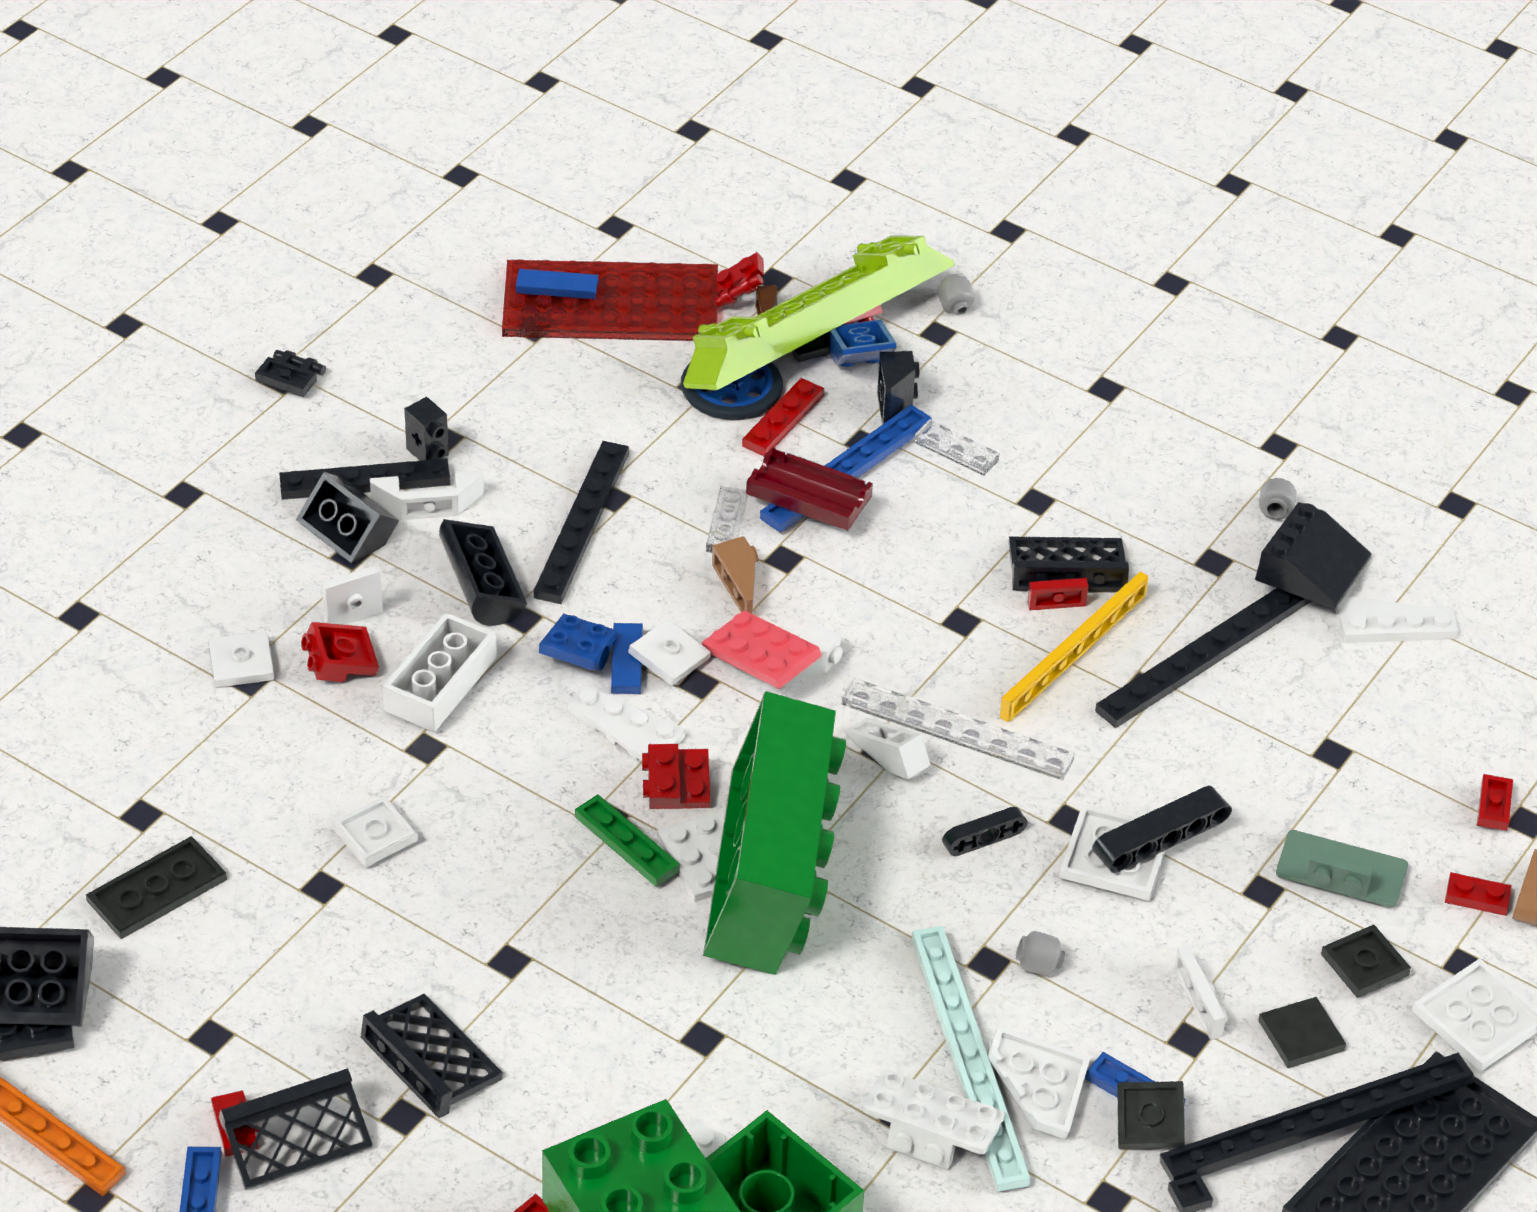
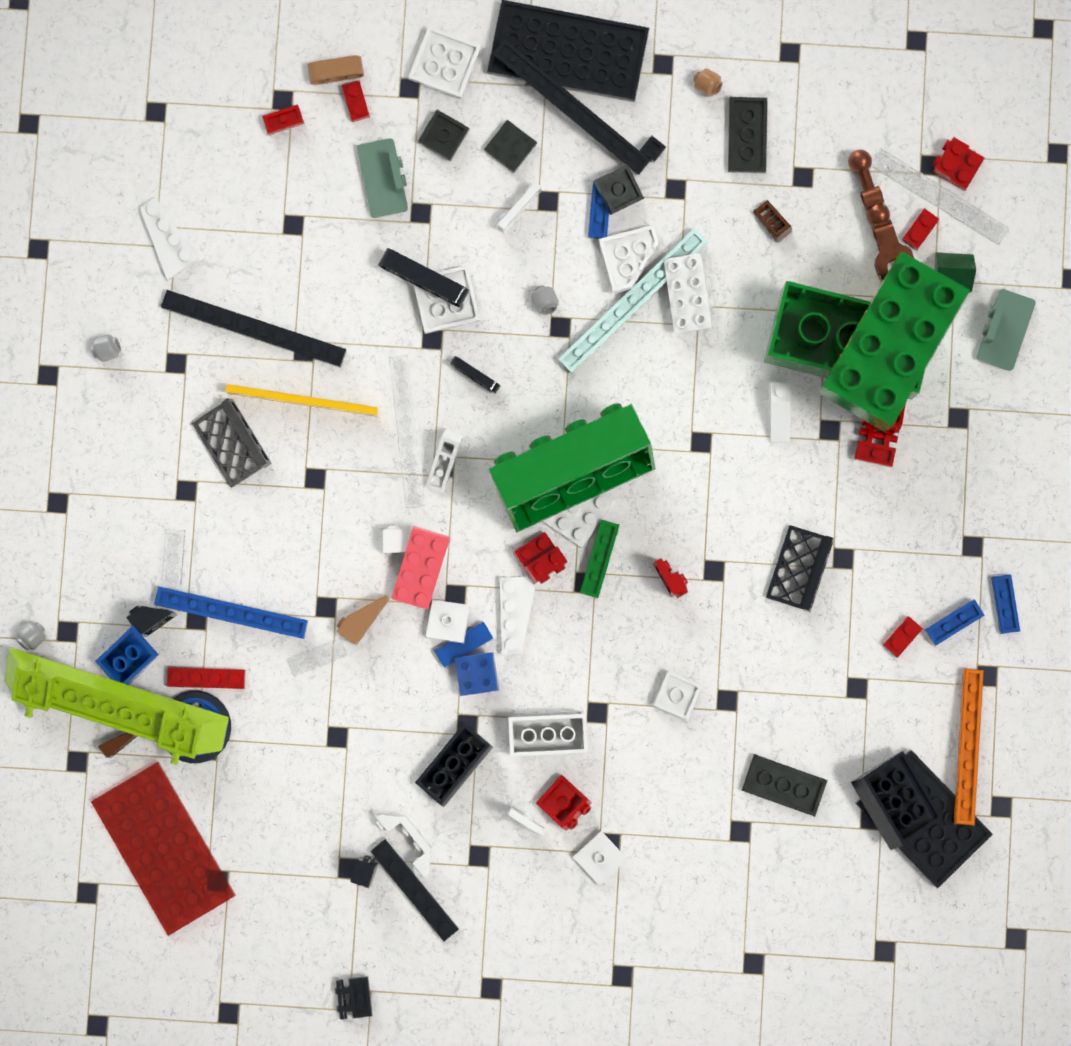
camera: 115 degrees left, 40 degrees up
(285, 1101) = (885, 609): black fence -> none
(346, 518) = (458, 874): black slope -> none
(537, 886) = (674, 583): none -> red plate
(557, 284) = (179, 884): blue tile -> none
(581, 522) = (369, 740): black plate -> none
(739, 279) = (100, 778): red plate -> none
(809, 489) = (271, 618): dark red gear -> none
(1057, 594) = (259, 426): red plate -> none
(1312, 557) = (150, 301): black slope -> none

